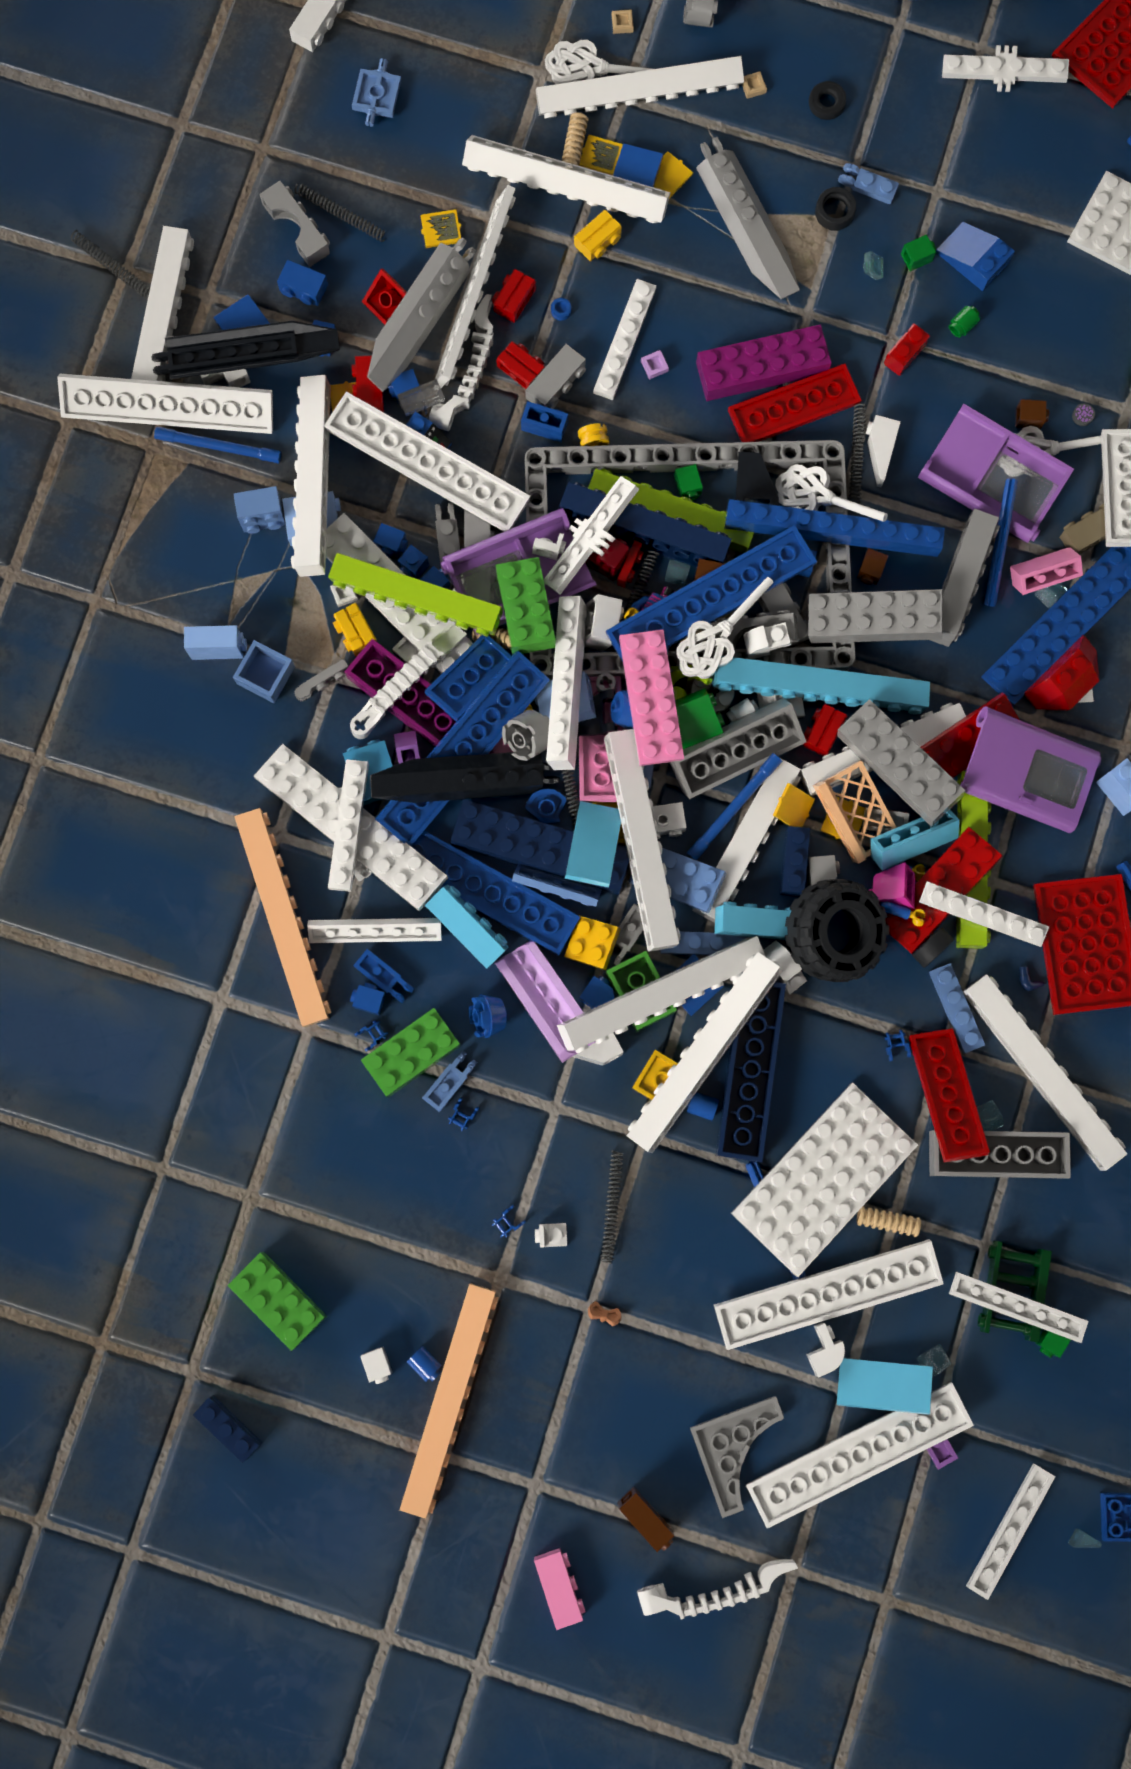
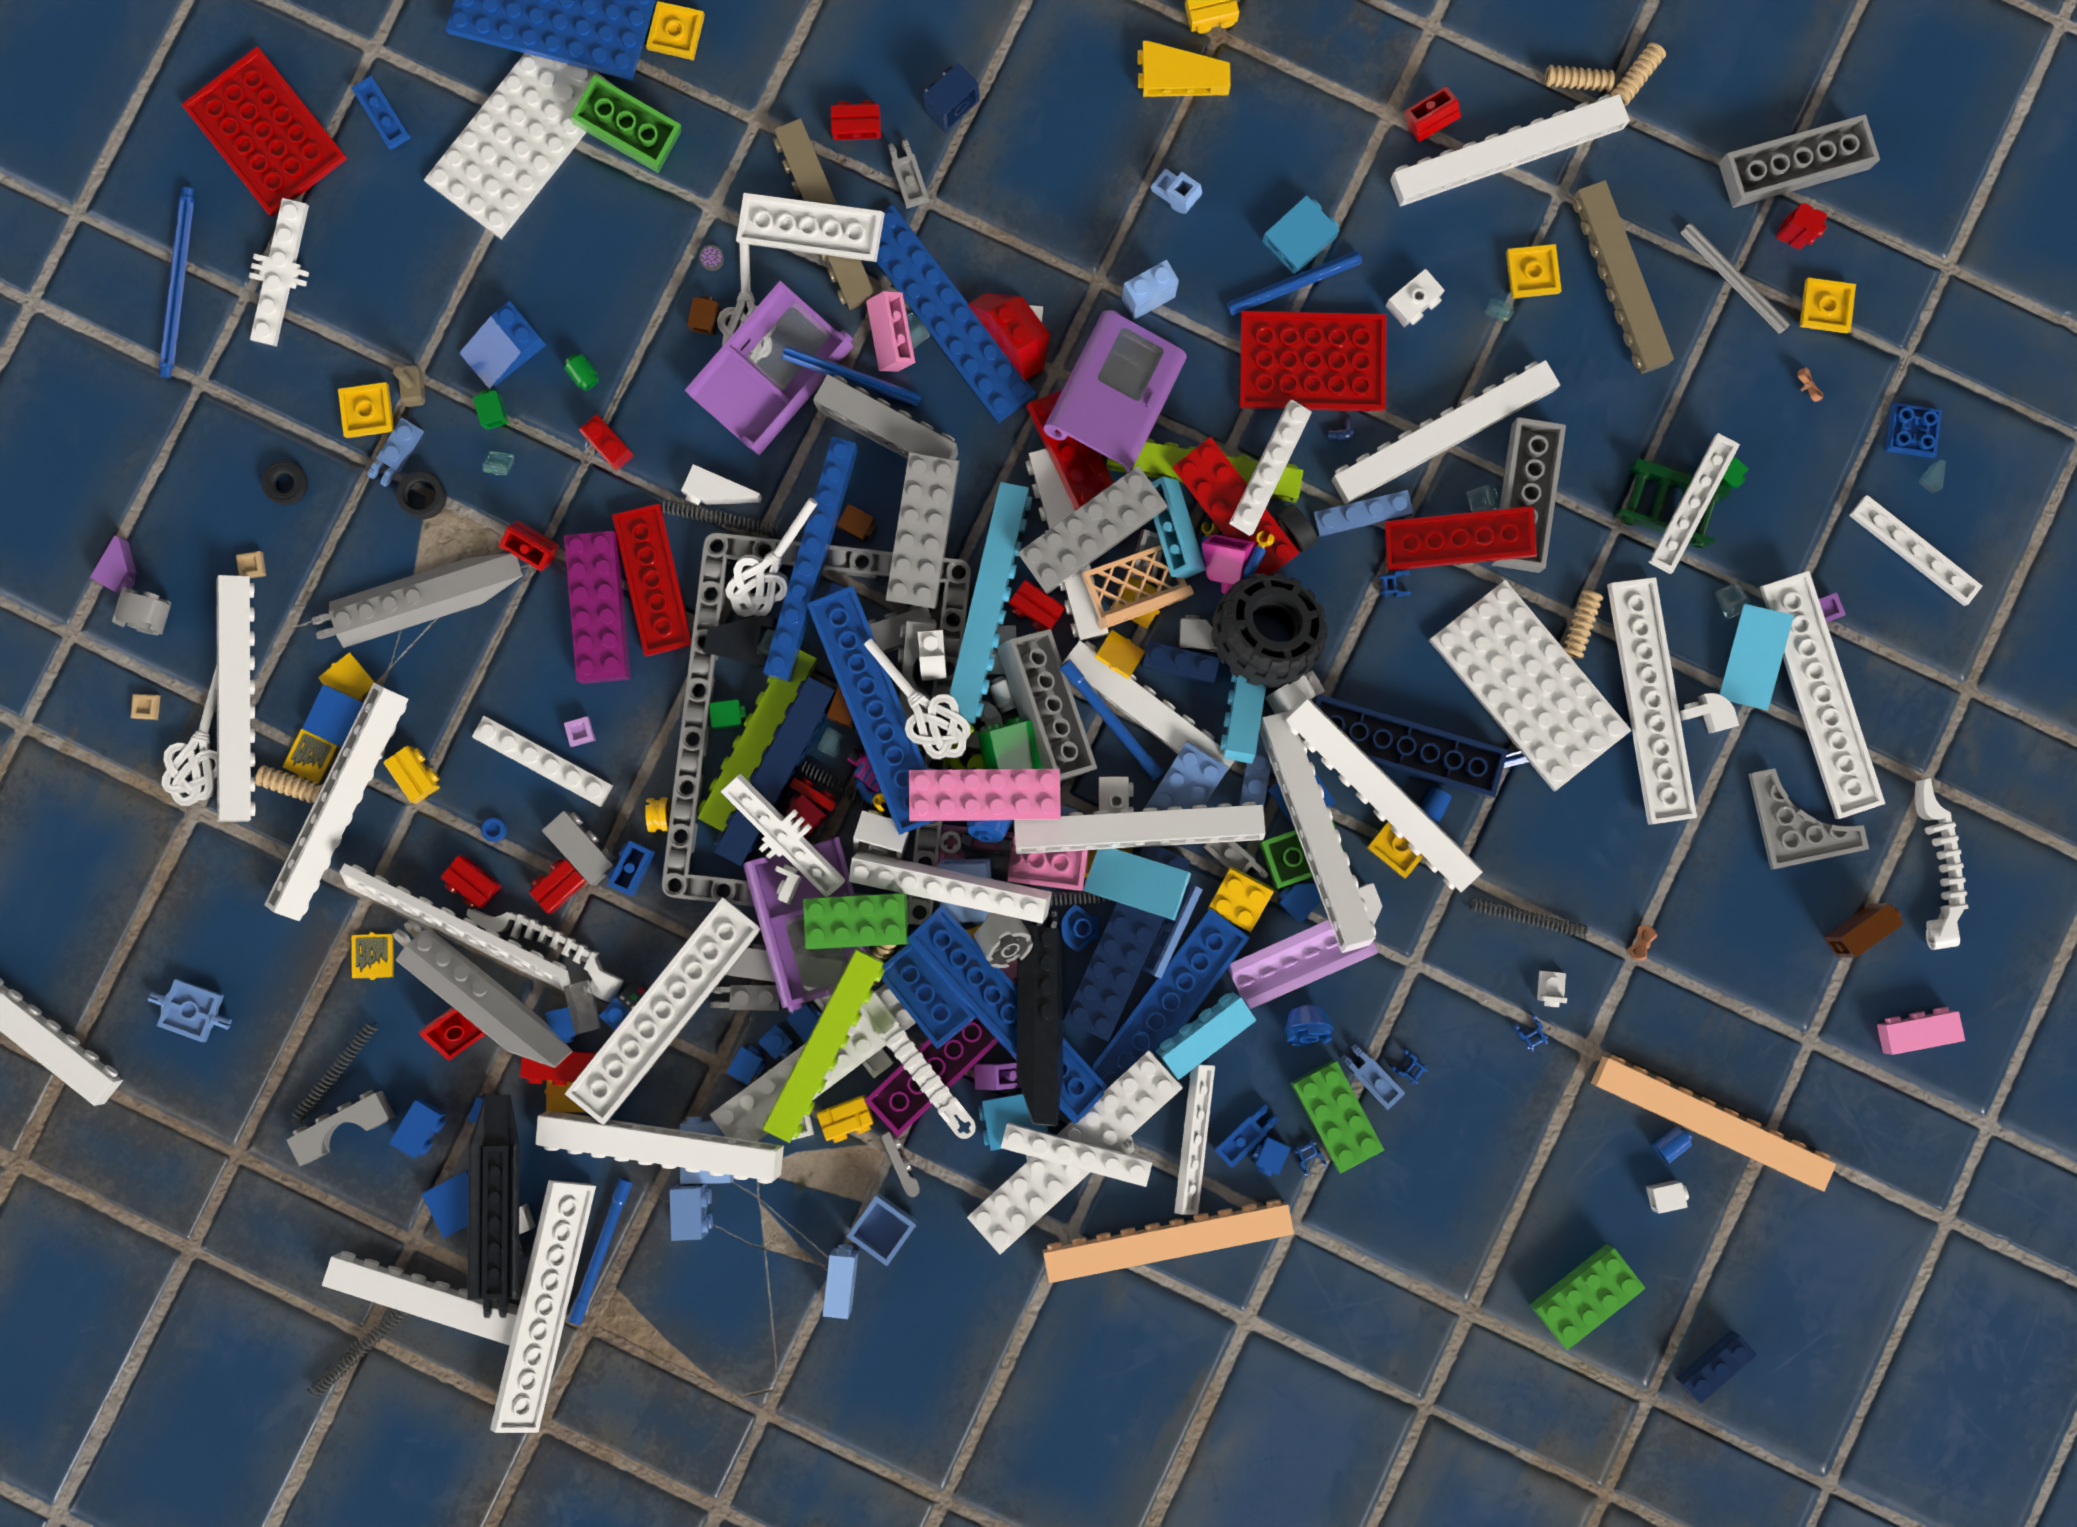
camera: 80 degrees left, 5 degrees up
(807, 299) = (529, 545): none -> red brick
(900, 154) = (366, 410): none -> yellow plate
(928, 186) = (411, 385): none -> dark tan piece

